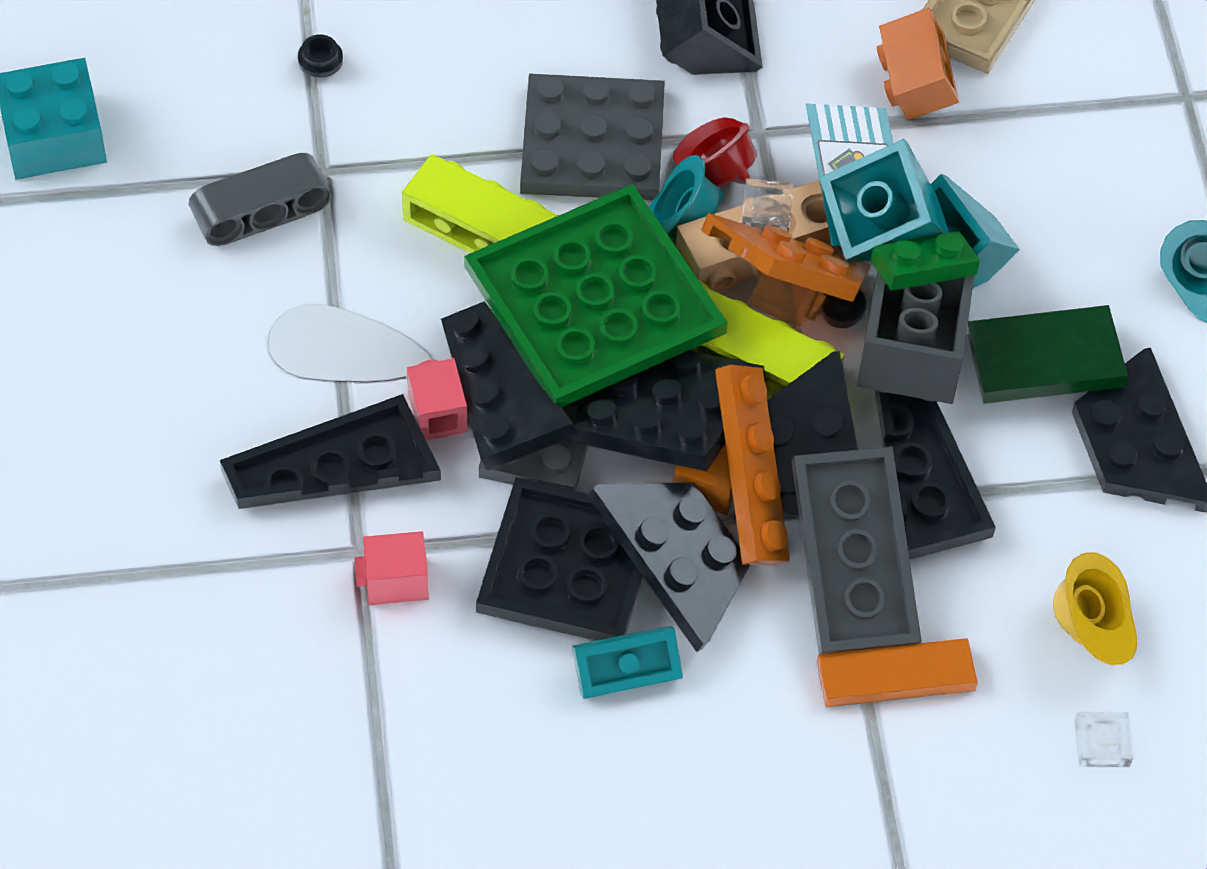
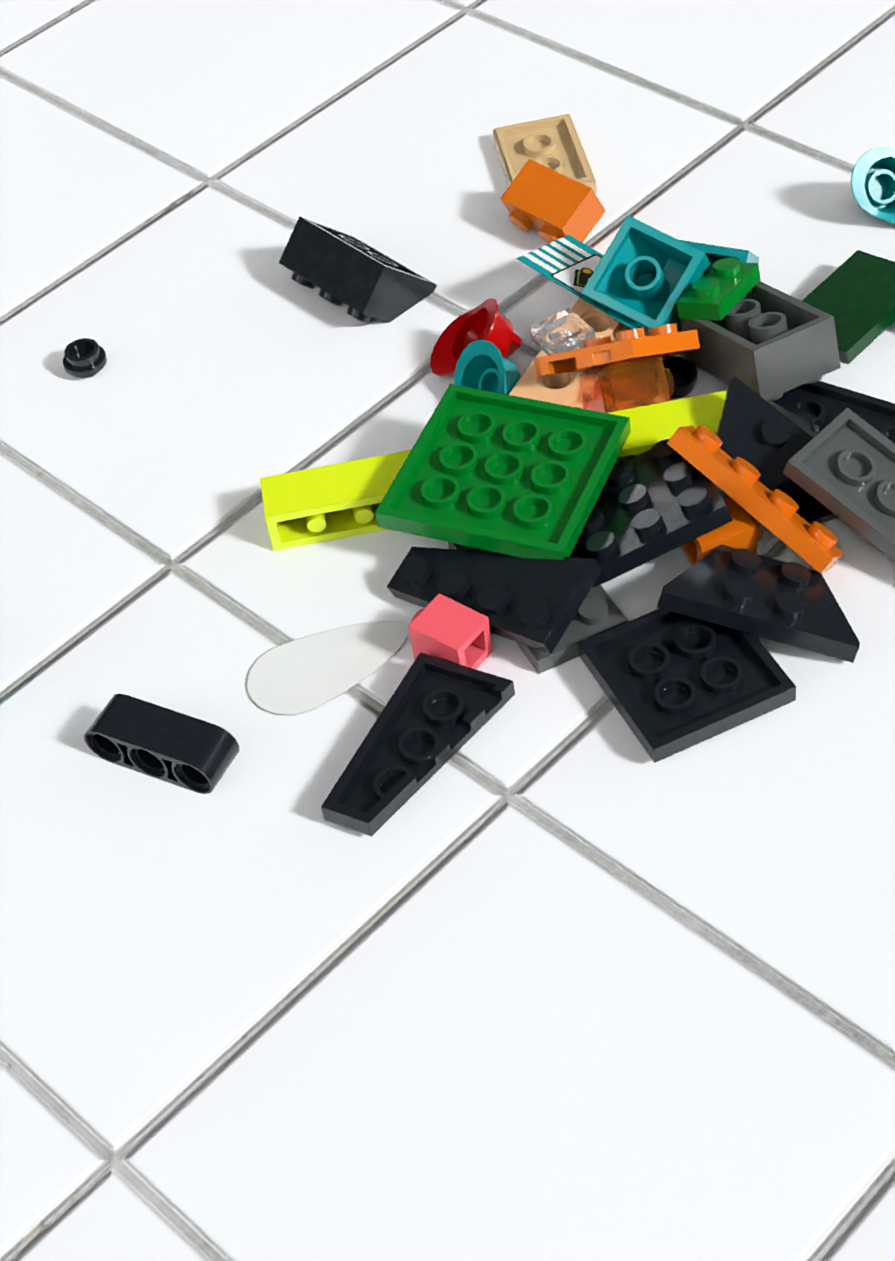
camera: 30 degrees left, 10 degrees down
(169, 322) = (162, 743): none -> black beam
(259, 199) = (143, 609): dark grey beam -> none
(320, 56) = (86, 487): black plate -> none
(393, 568) = (558, 776): coral brick -> none
(592, 136) = (360, 400): dark grey plate -> none
(627, 662) = (818, 702): teal plate -> none

